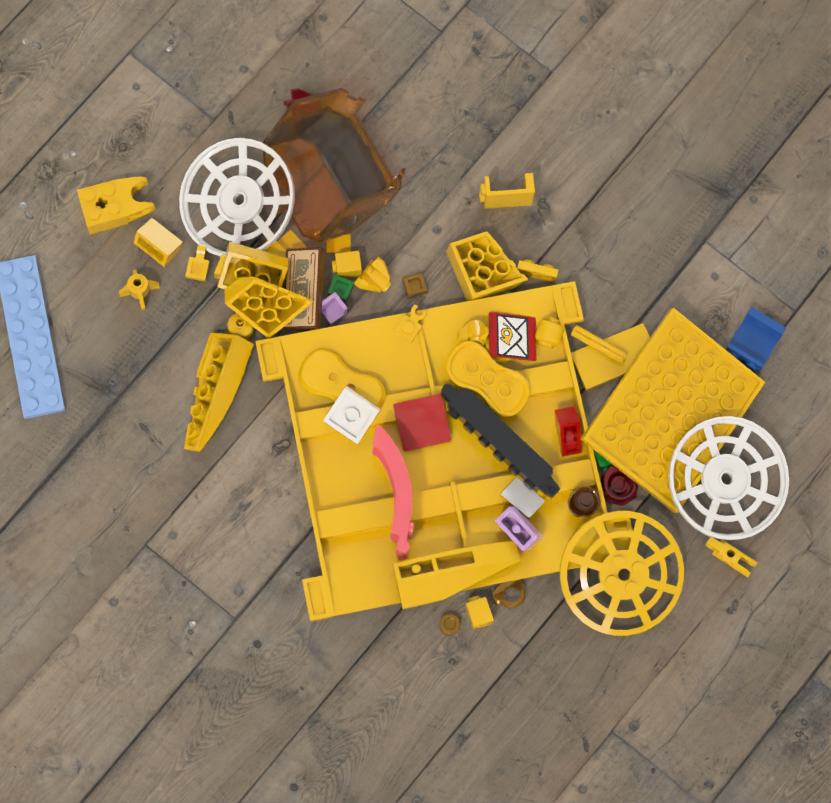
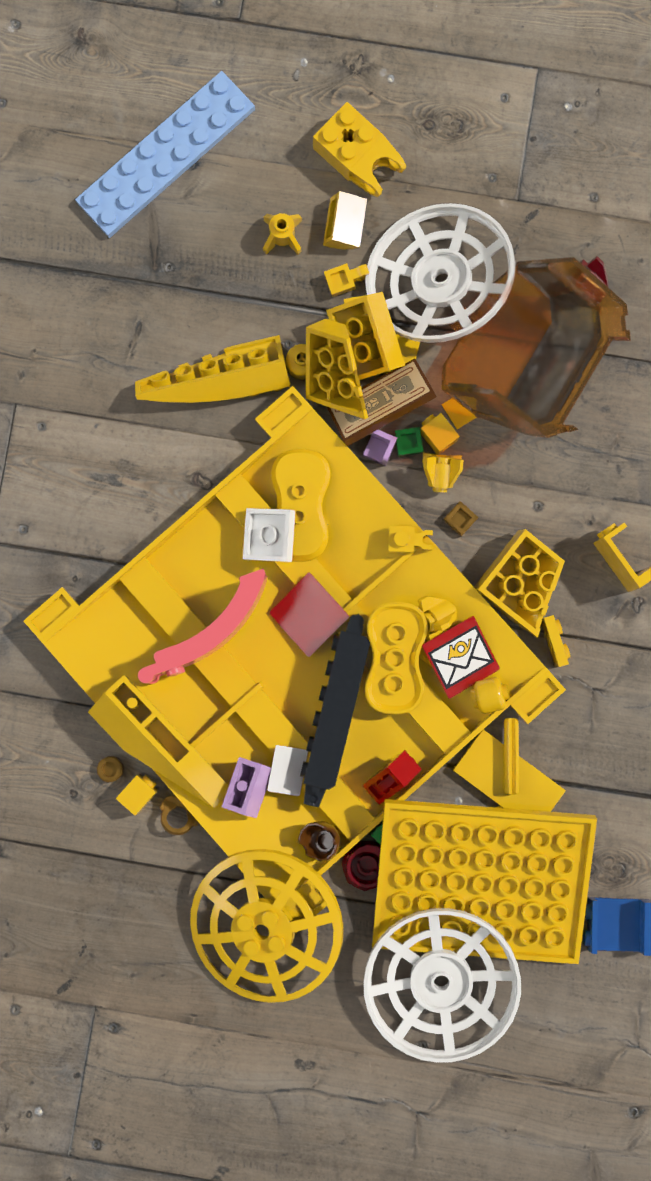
camera: 65 degrees right, 10 degrees up
(291, 241) = (429, 361): yellow sticker -> none
(722, 548) = (362, 1020): yellow hinge -> none

